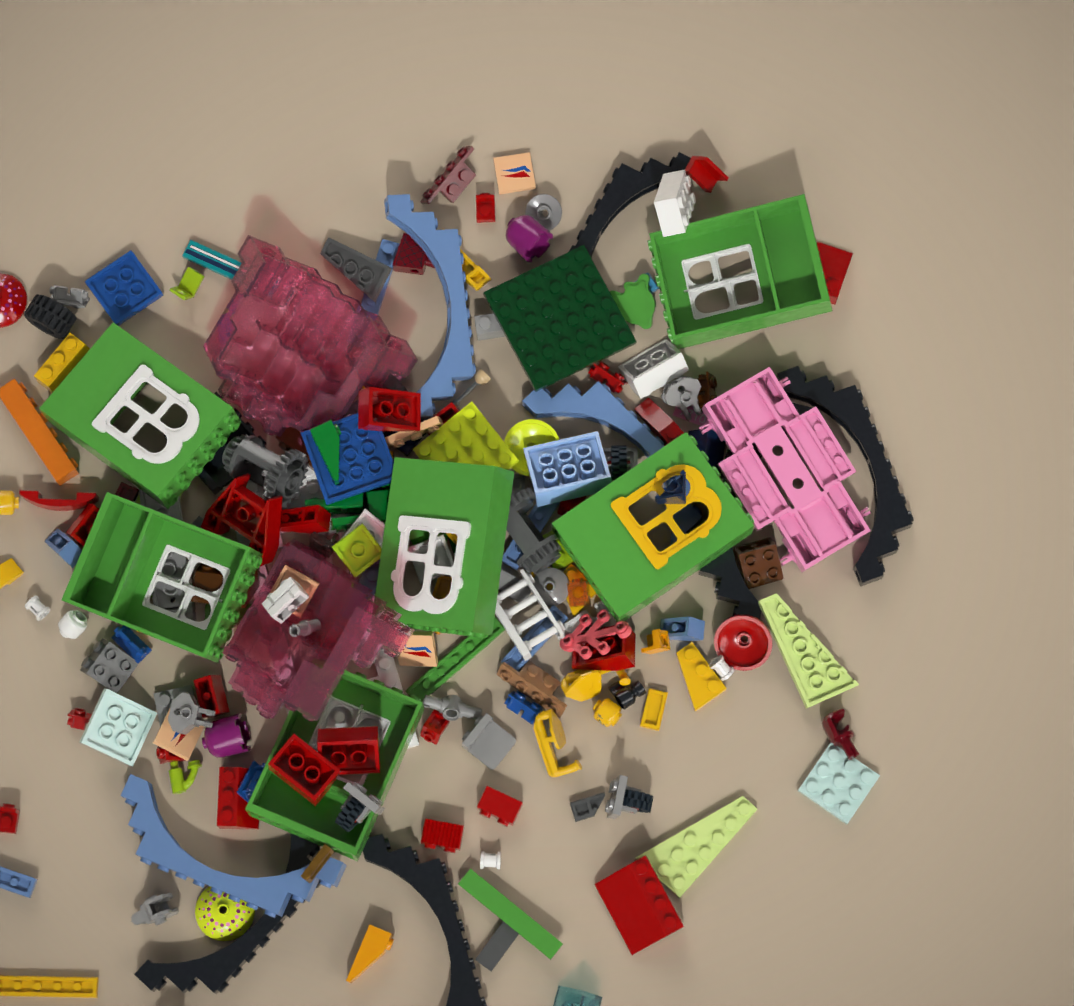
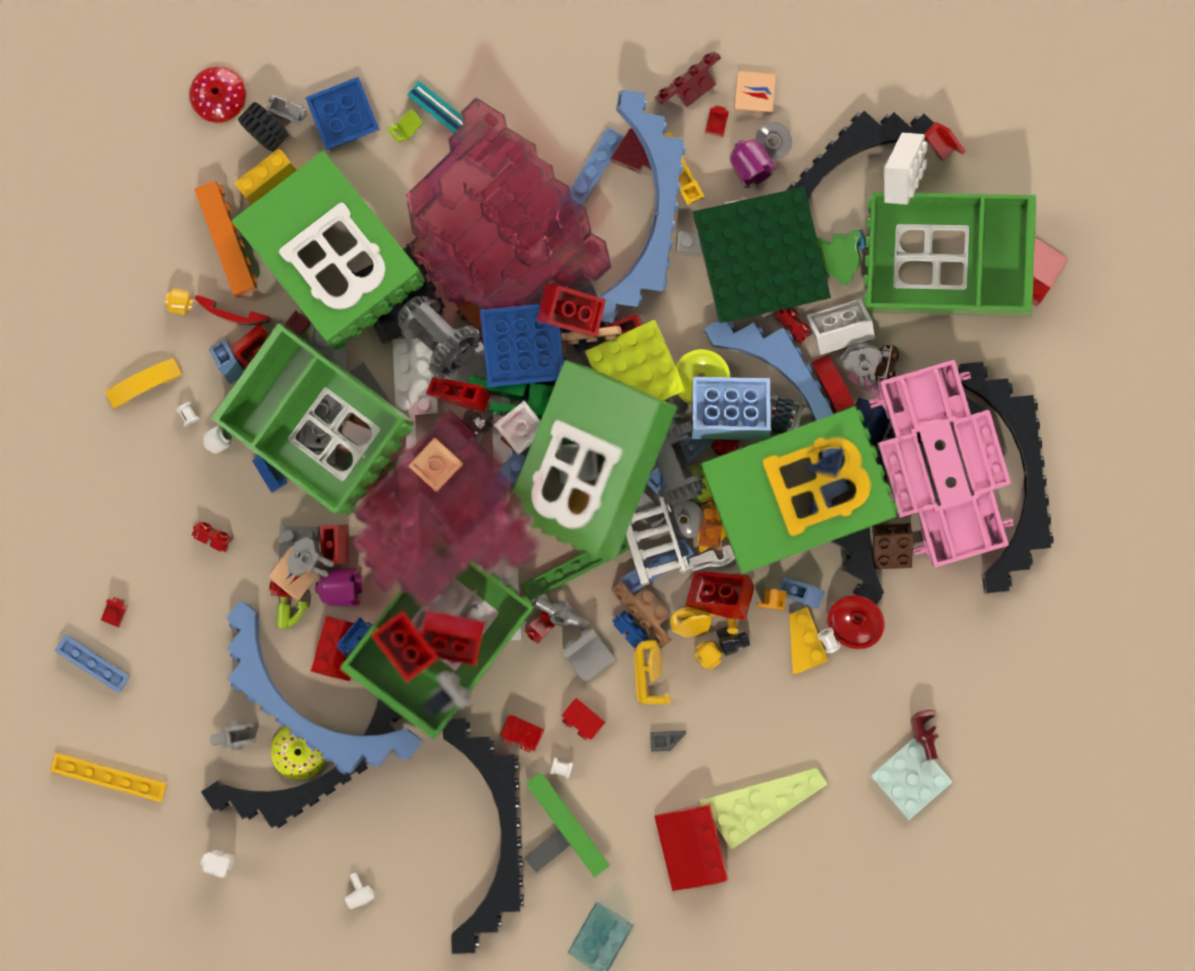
camera: 15 degrees right, 10 degrees up
(108, 665) = (242, 488): dark grey bracket -> none
(118, 727) = (238, 552): light aqua plate -> none
(247, 515) = (409, 379): red wedge -> none
(285, 600) = (425, 473): white brick -> none
(304, 628) = (438, 507): light grey pin -> none
(317, 863) = (396, 736): pearl gold tile -> none
(328, 443) = (503, 328): green slope -> none
(358, 550) = (507, 440): lime tile -> none
(362, 270) = (579, 155): dark grey wing -> none
(372, 948) = (430, 822): light orange slope -> none
(420, 650) = (549, 551): light nougat tile -> none
(481, 378) = (669, 294): hinge -> none
(572, 640) = (713, 578): coral plant -> none
(626, 799) = (704, 744): plate -> none
(653, 709) = (753, 663): yellow tile -> none
(807, 659) = (913, 654): yellowish green wing -> none

